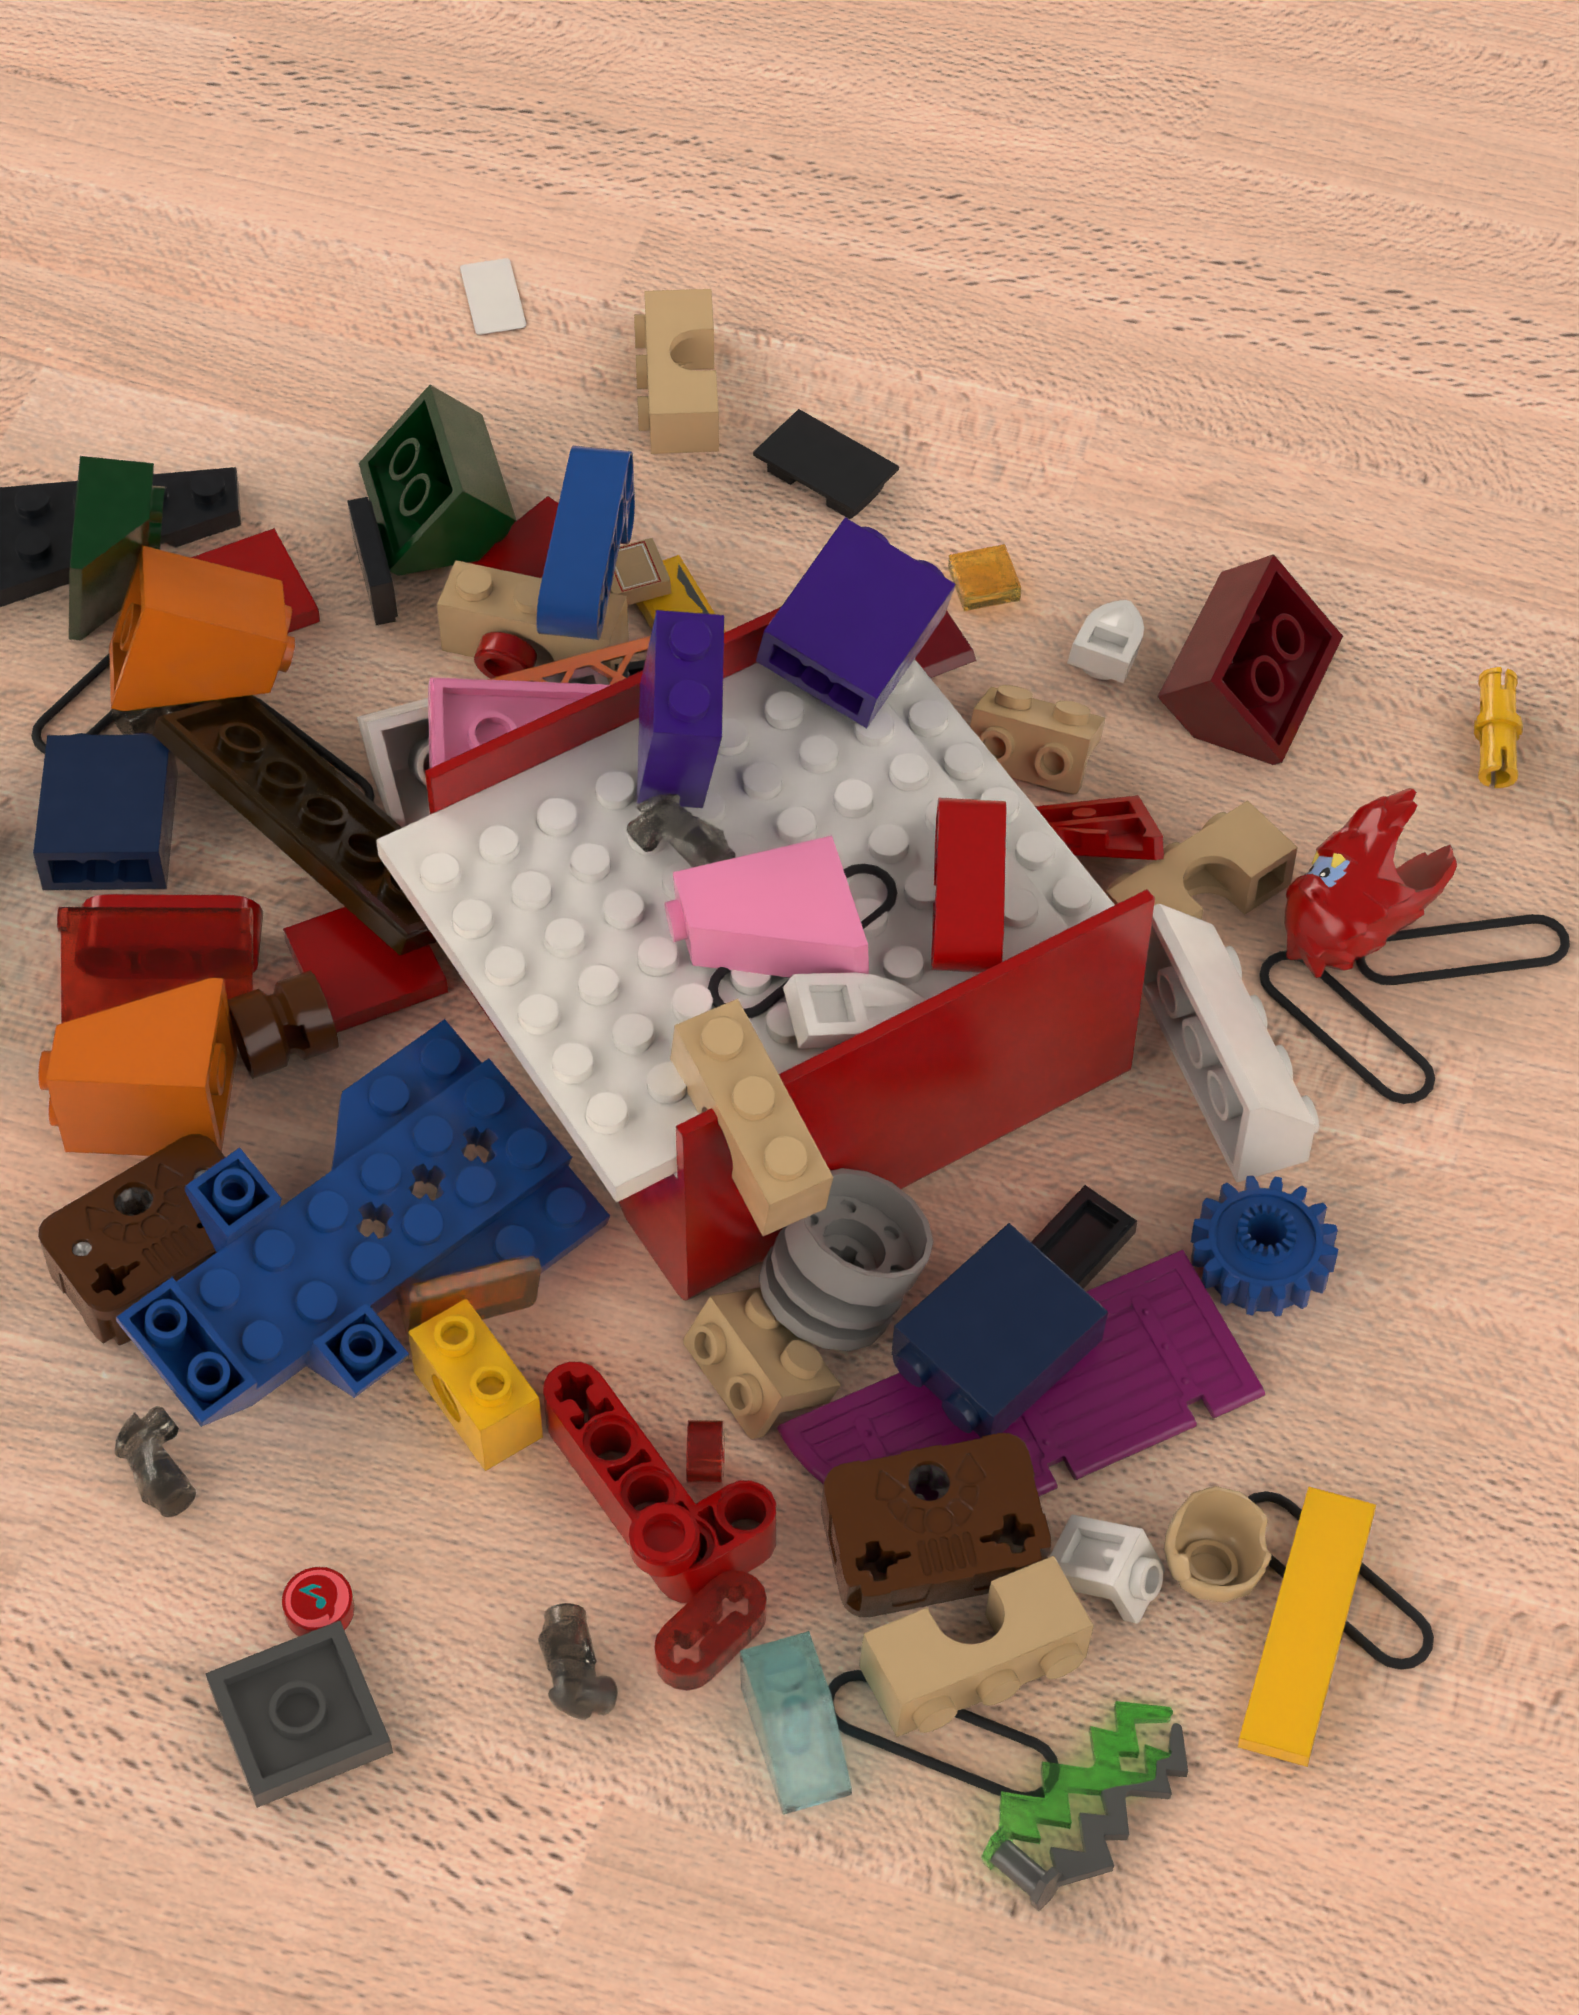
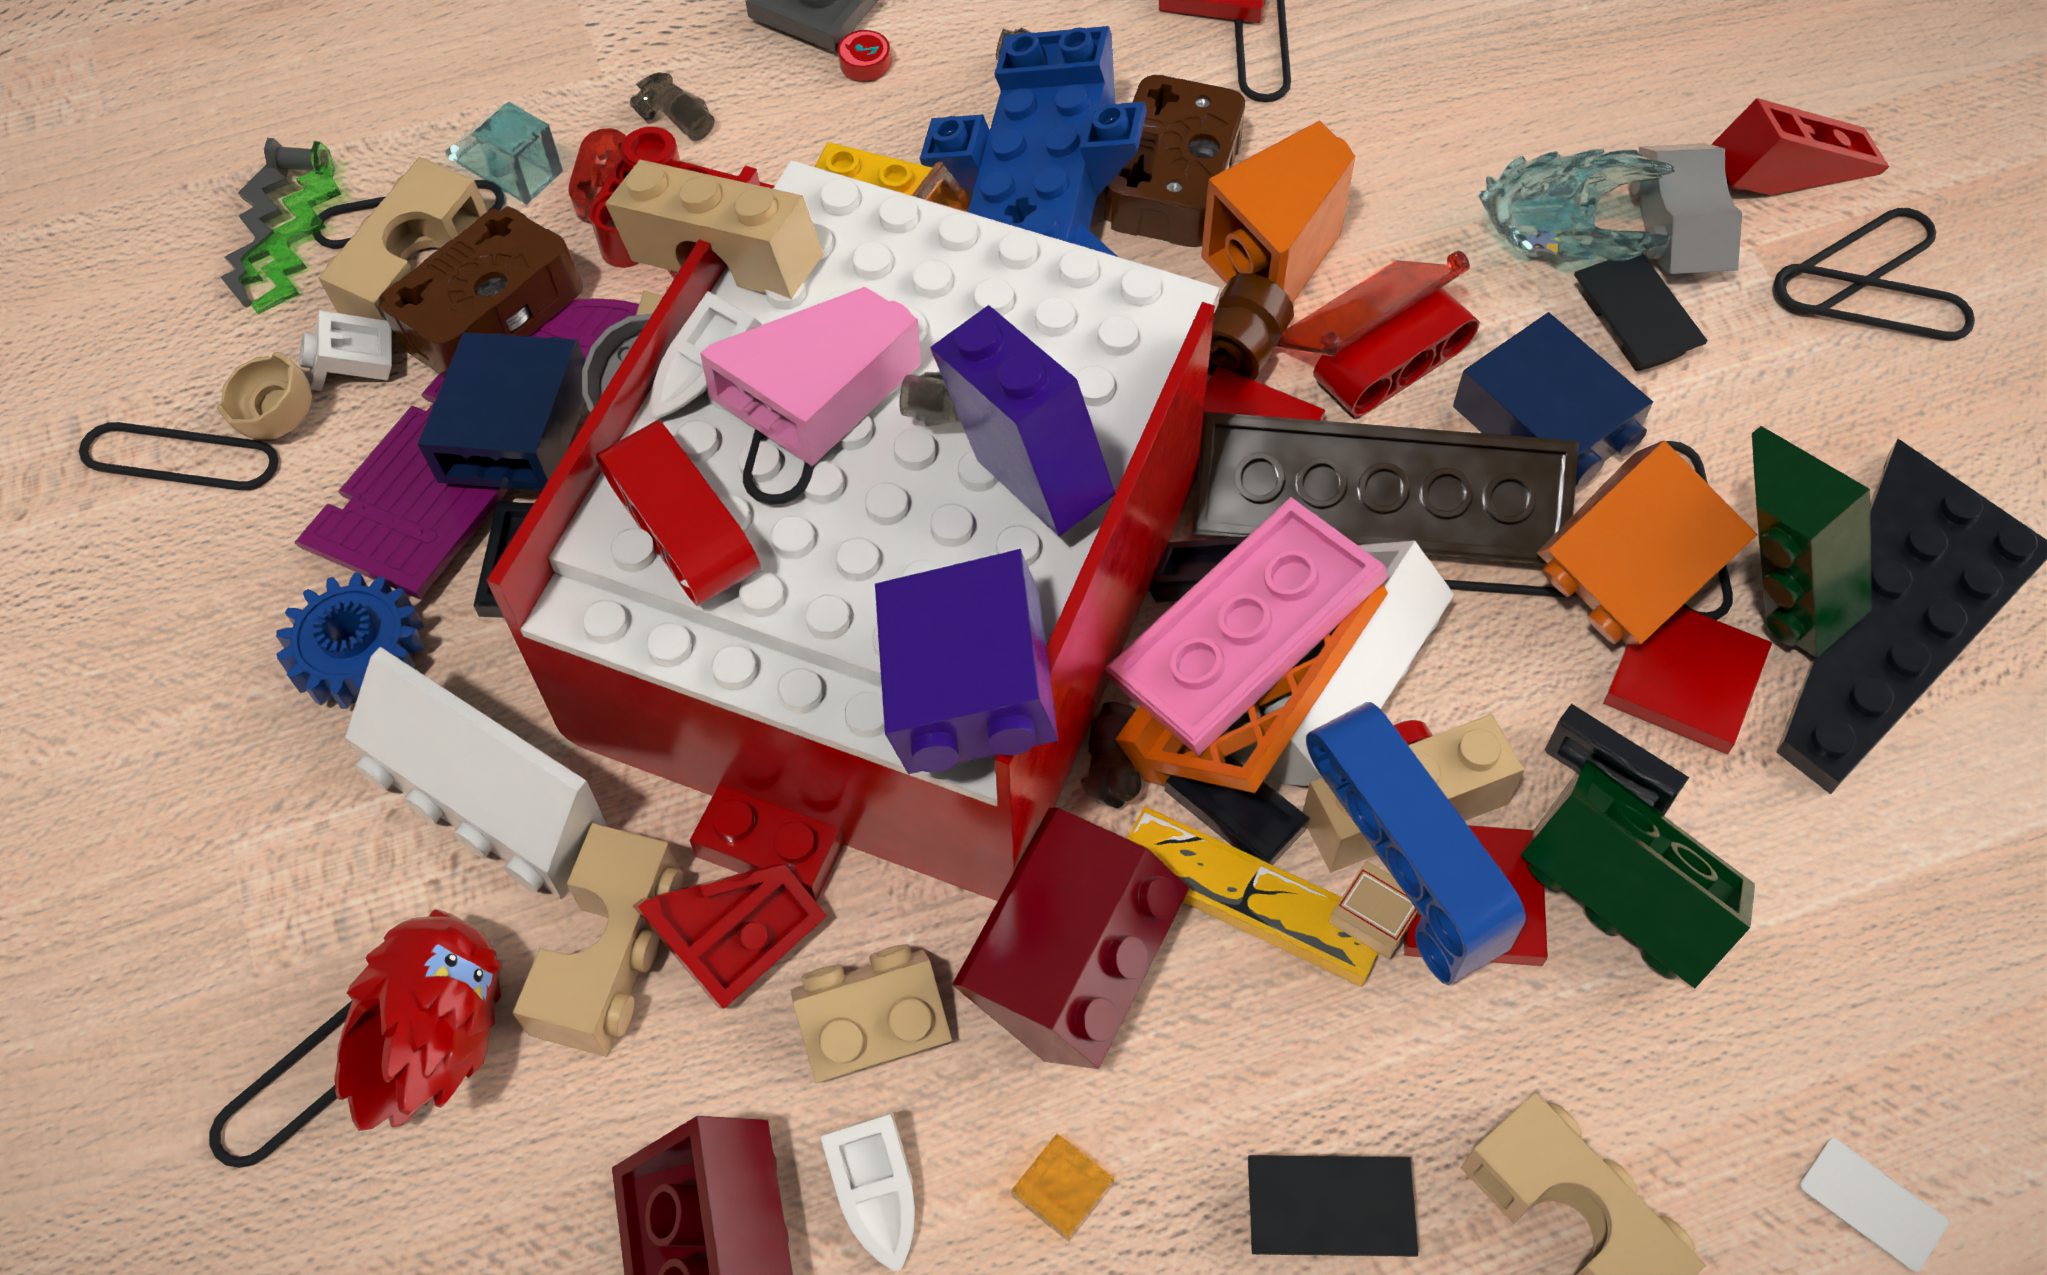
camera: 145 degrees right, 5 degrees up
(1307, 1627) = (175, 404): yellow tile -> none
(1336, 1048) = (383, 882): black piece -> none

